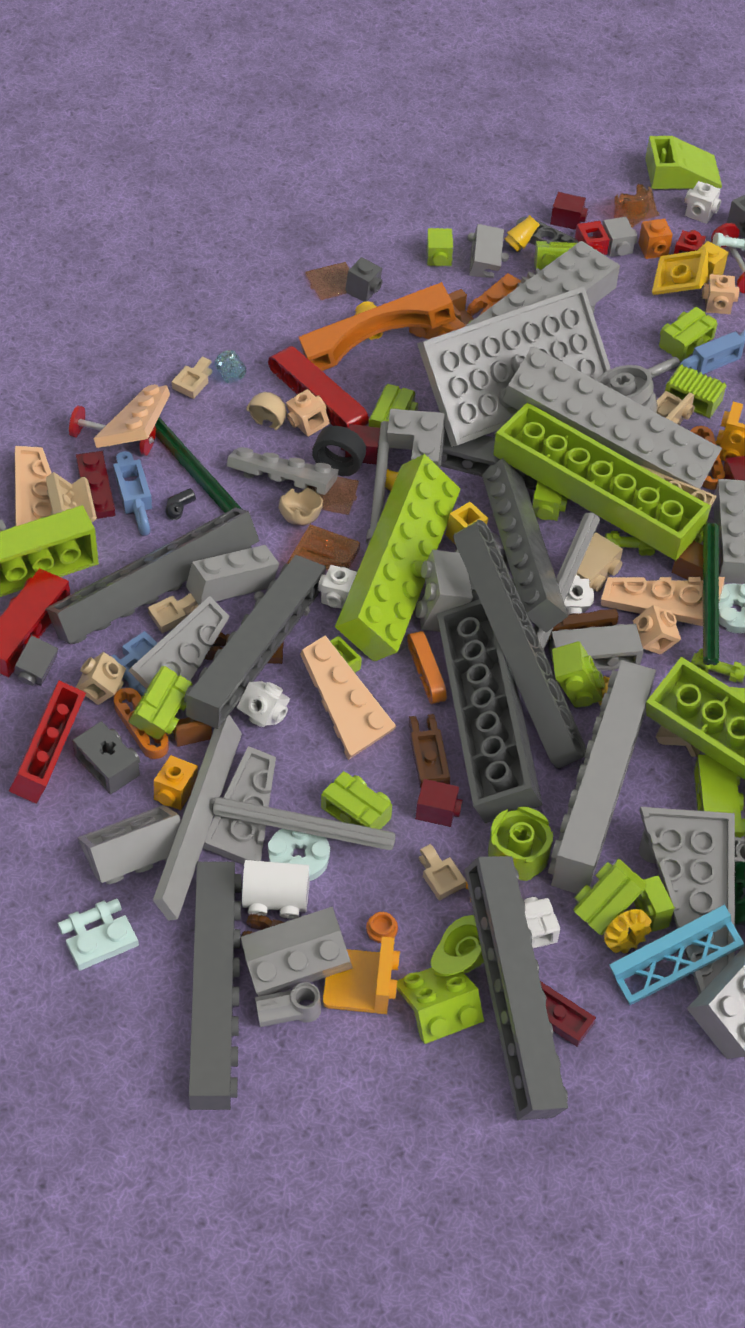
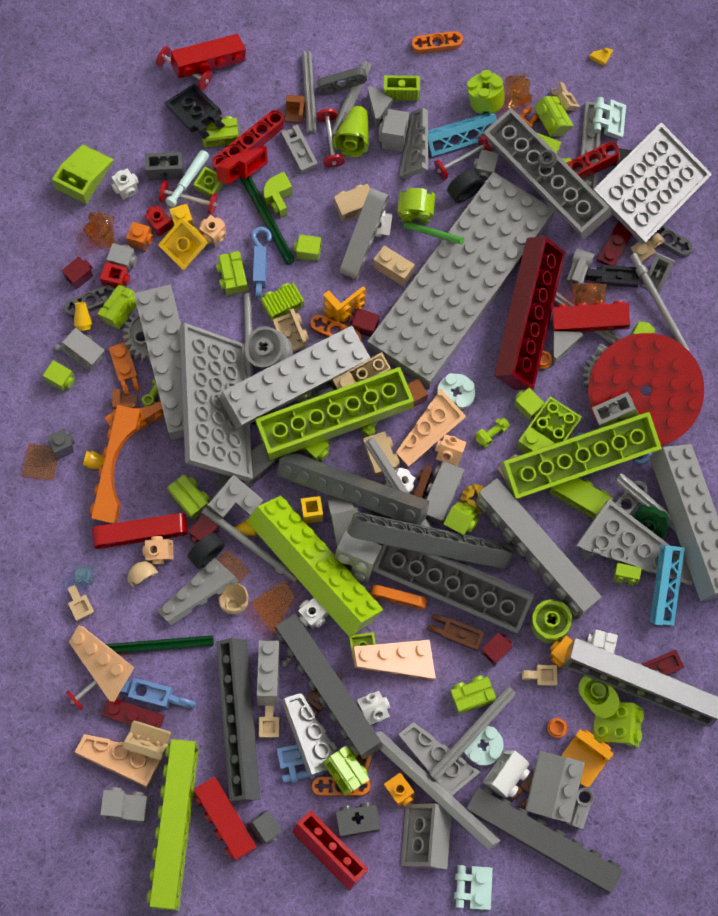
camera: 55 degrees left, 20 degrees up
(101, 677) = (299, 794): tan brick -> none
(176, 503) = (180, 673): black arm -> none
(609, 895) = (615, 597): lime brick -> none
(617, 936) = (636, 599): yellow gear -> none
(710, 594) = (449, 405): dark green axle -> none

